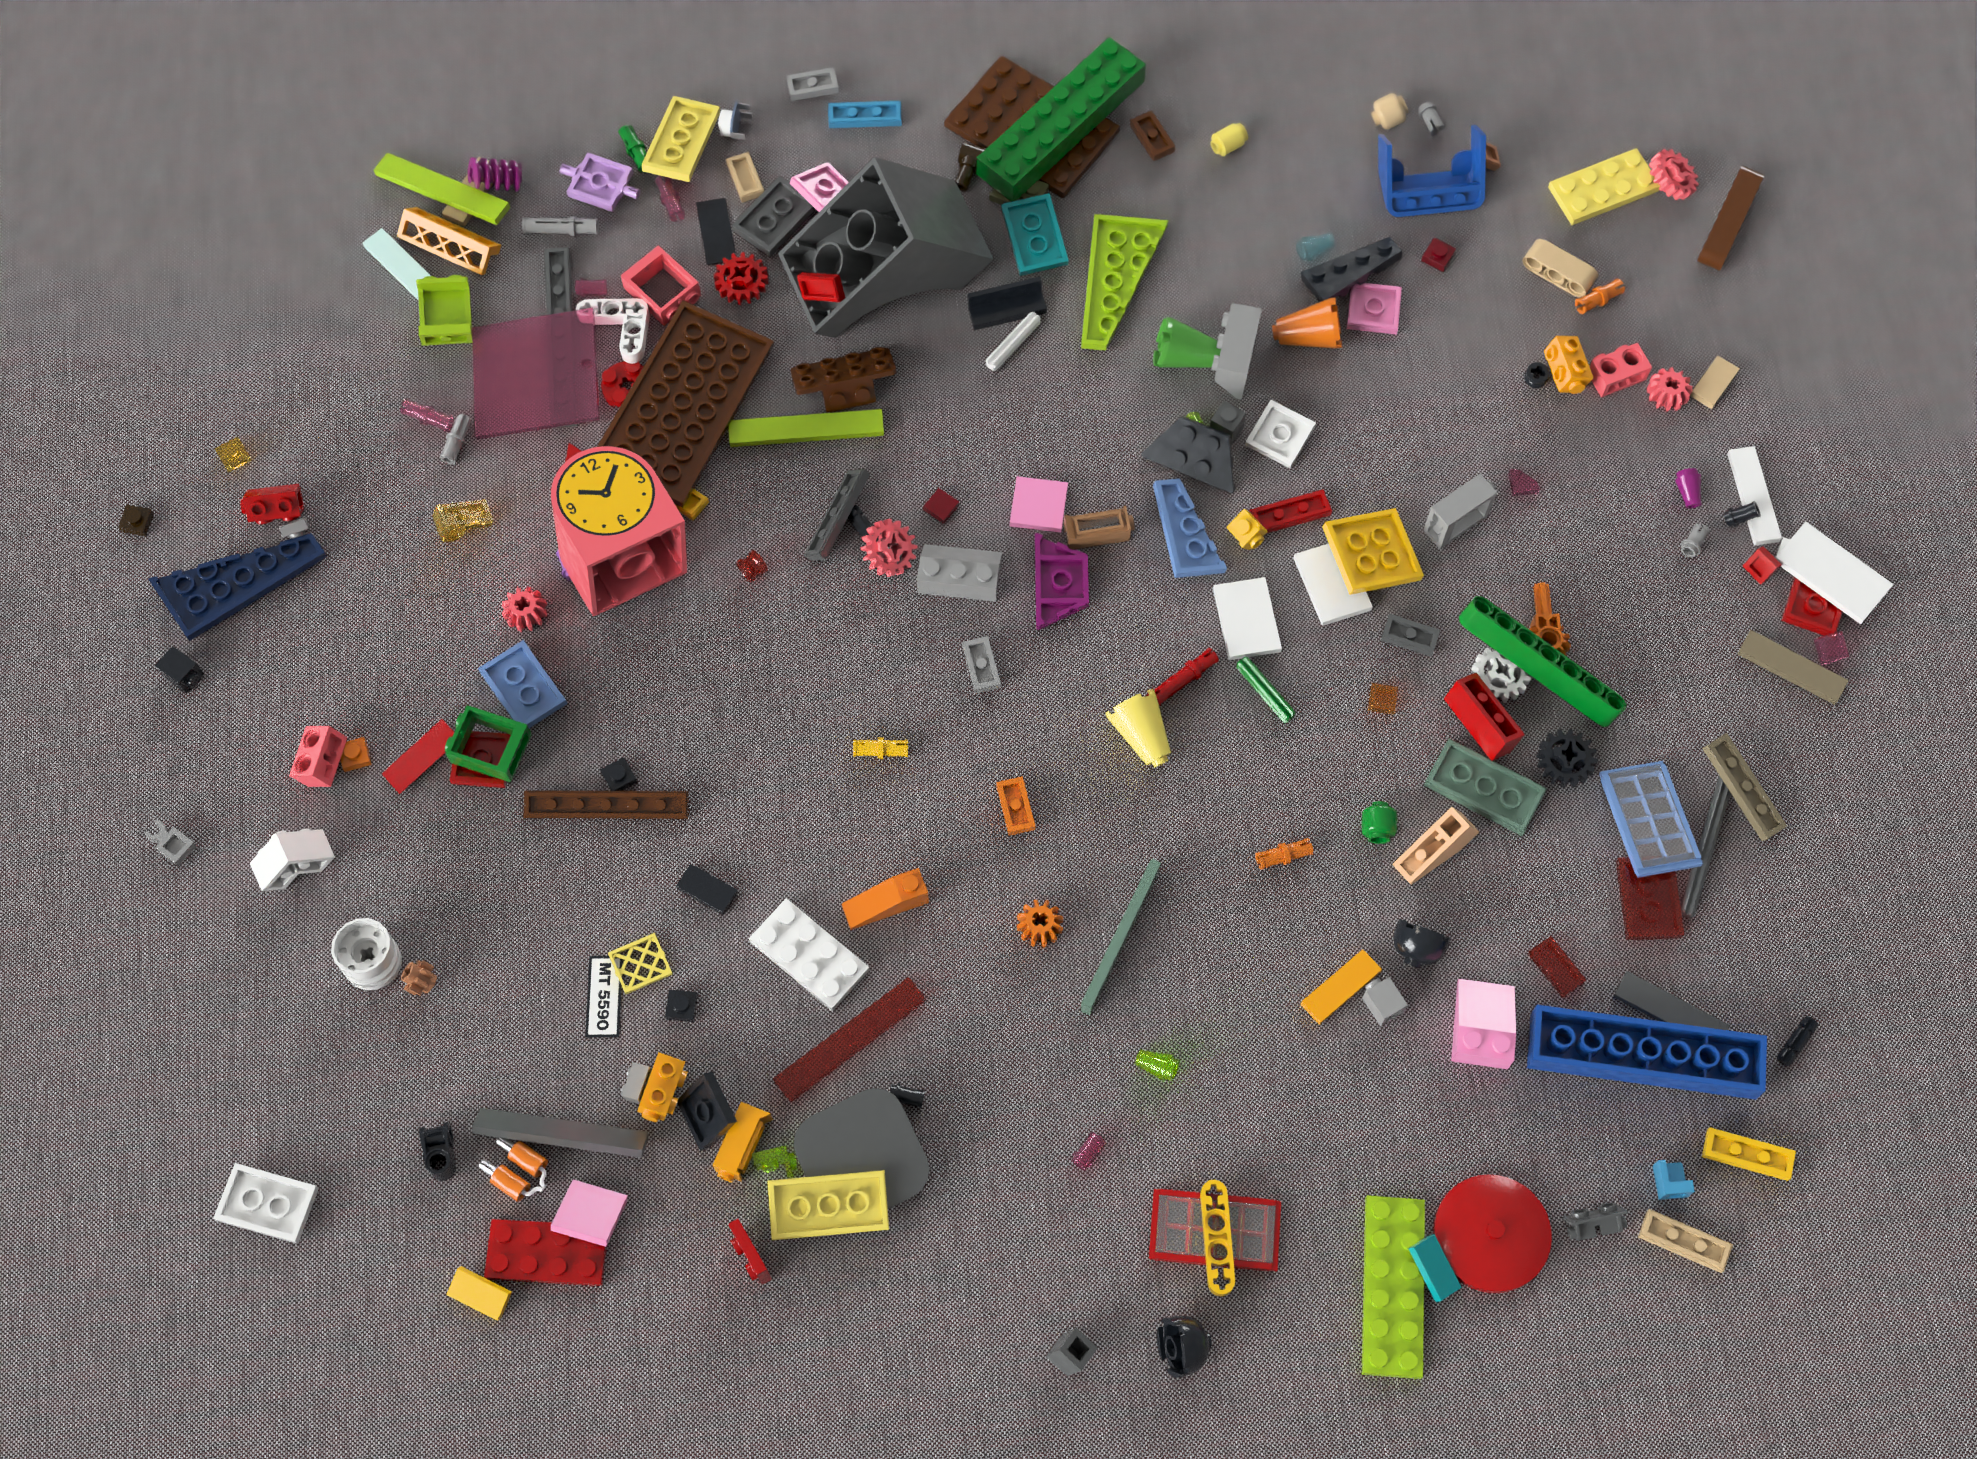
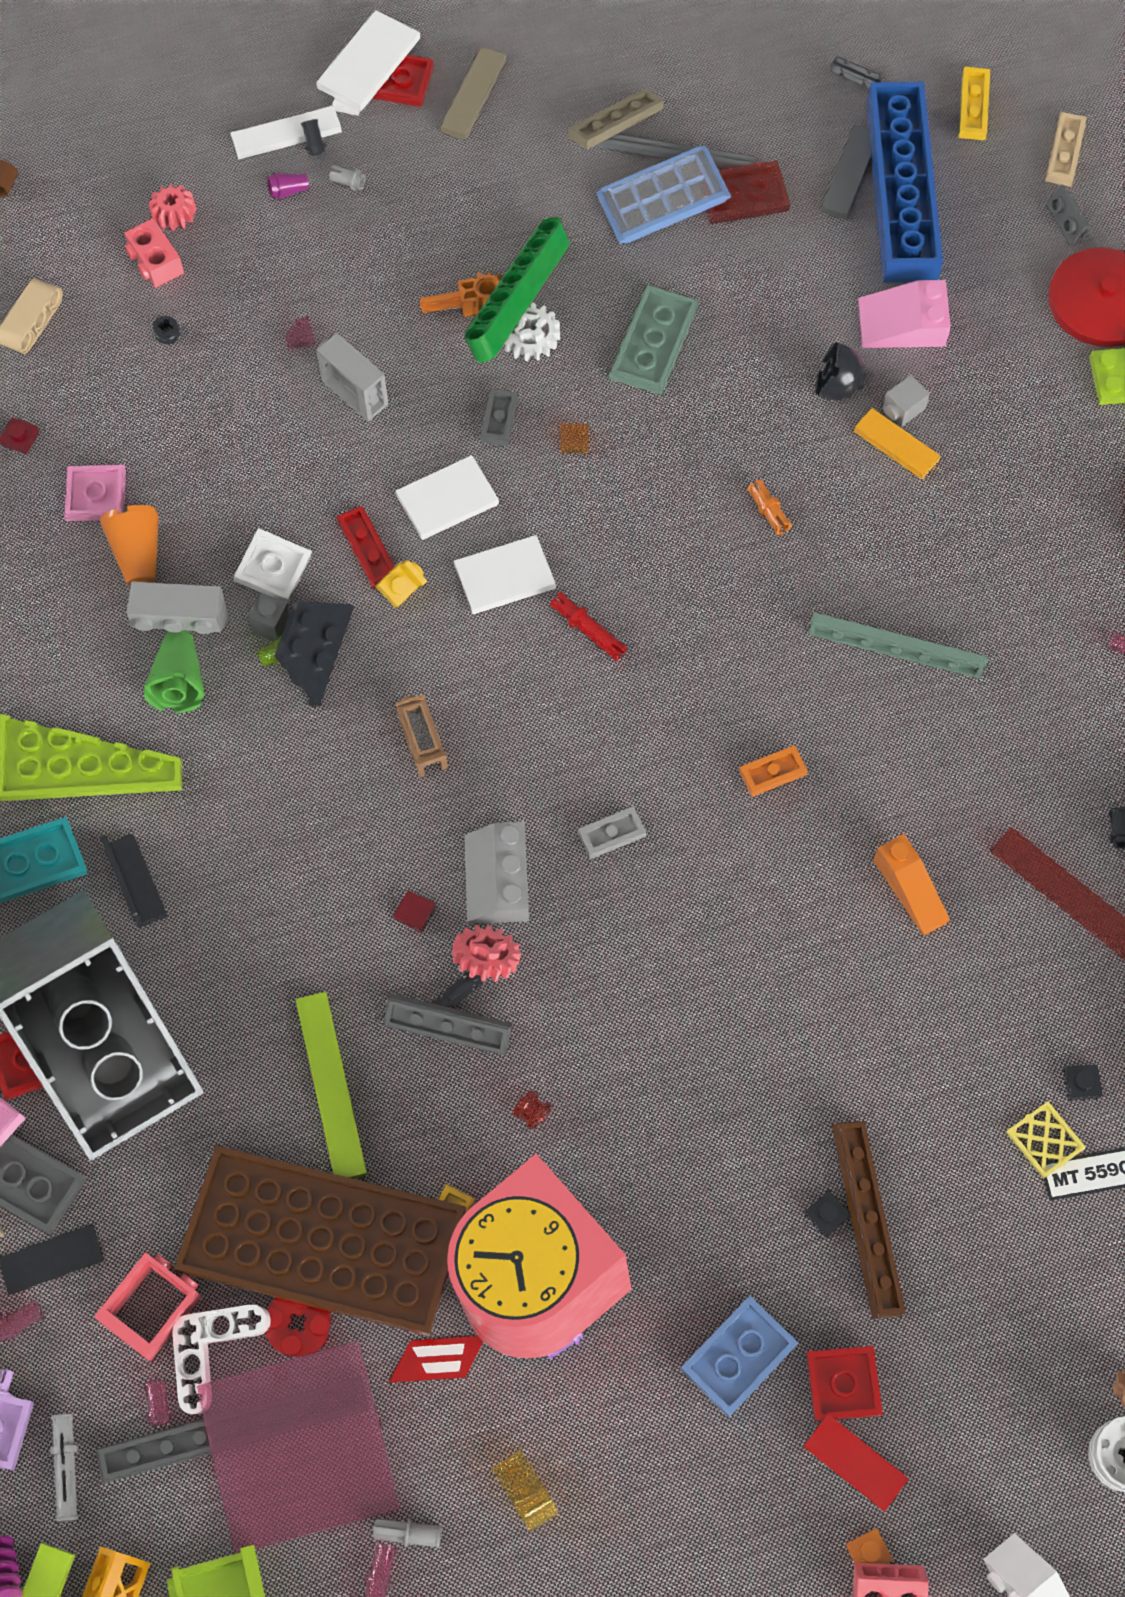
camera: 100 degrees left, 0 degrees up
(512, 754) = (841, 1336): green window -> none
(524, 609) = (646, 1370): coral gear -> none
(707, 889) = (942, 1082): black tile -> none
(741, 278) = (136, 1196): red gear -> none
(809, 954) = (989, 958): white plate -> none
(821, 287) = (148, 1084): red tile -> none
(845, 379) = (256, 1050): reddish brown bracket -> none
(880, 748) = (734, 923): yellow pin -> none
(1013, 341) = (182, 866): white axle -> none
(1038, 504) = (396, 805): bright pink tile -> none
(1041, 914) = (890, 722): orange gear -> none
(1059, 581) = (492, 767): magenta wing -> none
(1142, 727) = (656, 655): light yellow cone -> none
(1158, 1064) = (1022, 593): clear neon green cone -> none
(1184, 532) = (423, 642): medium blue wing -> none
(1265, 689) = (586, 546): axle -> none
(1312, 246) = (21, 559): clear light blue cone -> none
(1353, 268) = (54, 522): black wing -> none
(1372, 551) = (408, 458): yellow plate -> none
(1379, 822) = (717, 424): green head -> none
(1436, 845) = (732, 371): light nougat slope -> none
(1484, 716) = (584, 338): red brick -> none
(1556, 967) = (829, 265): clear red tile -> none
(1568, 364) = (155, 296): light orange brick -> none
(1577, 753) = (612, 268): black gear -> none
(1599, 296) = (61, 277): orange pin -> none
(1671, 1181) = (1017, 162): dark azure panel -> none
(1714, 382) = (155, 171): tan tile -> none
(1762, 565) = (368, 118): red plate -> none
(1831, 648) = (448, 61): clear pink tile -> none

